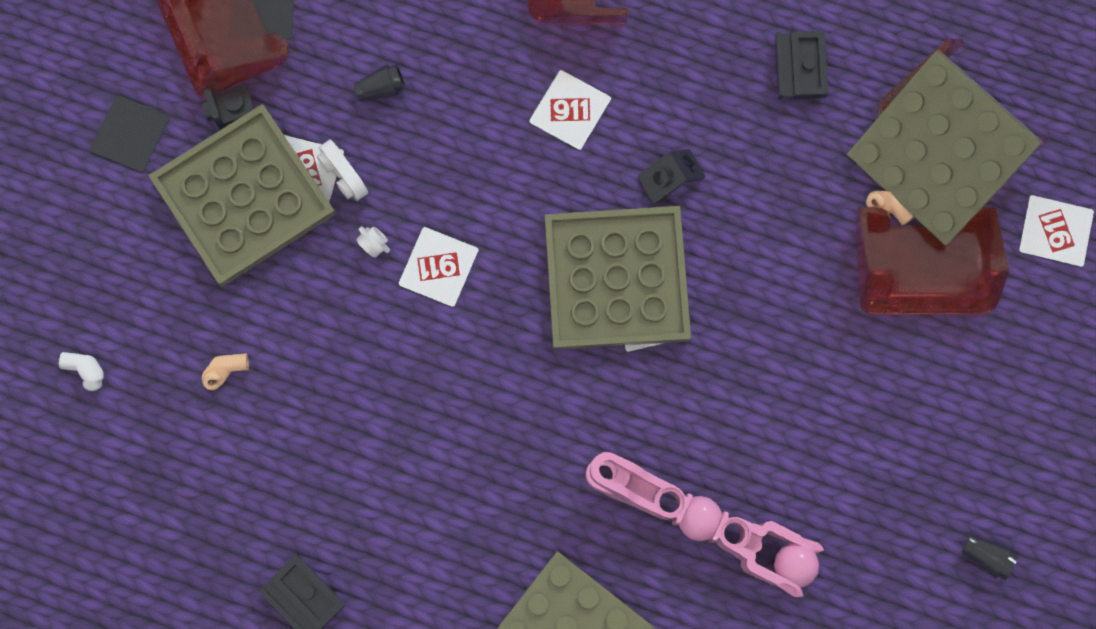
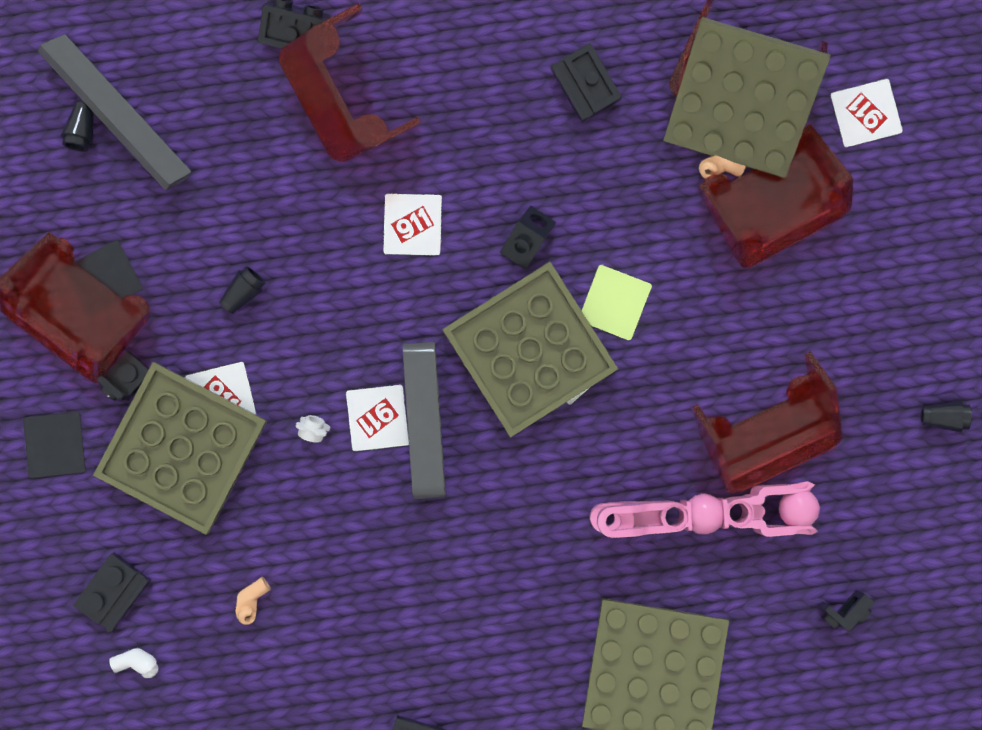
camera: 30 degrees left, 10 degrees up
(101, 293) = (112, 592): none -> black plate
(349, 182) = (264, 390): white plate -> none
(480, 289) = (424, 420): none -> dark grey beam
(722, 279) = (615, 302): none -> yellowish green sticker
(810, 487) = (778, 436): none -> clear red windscreen

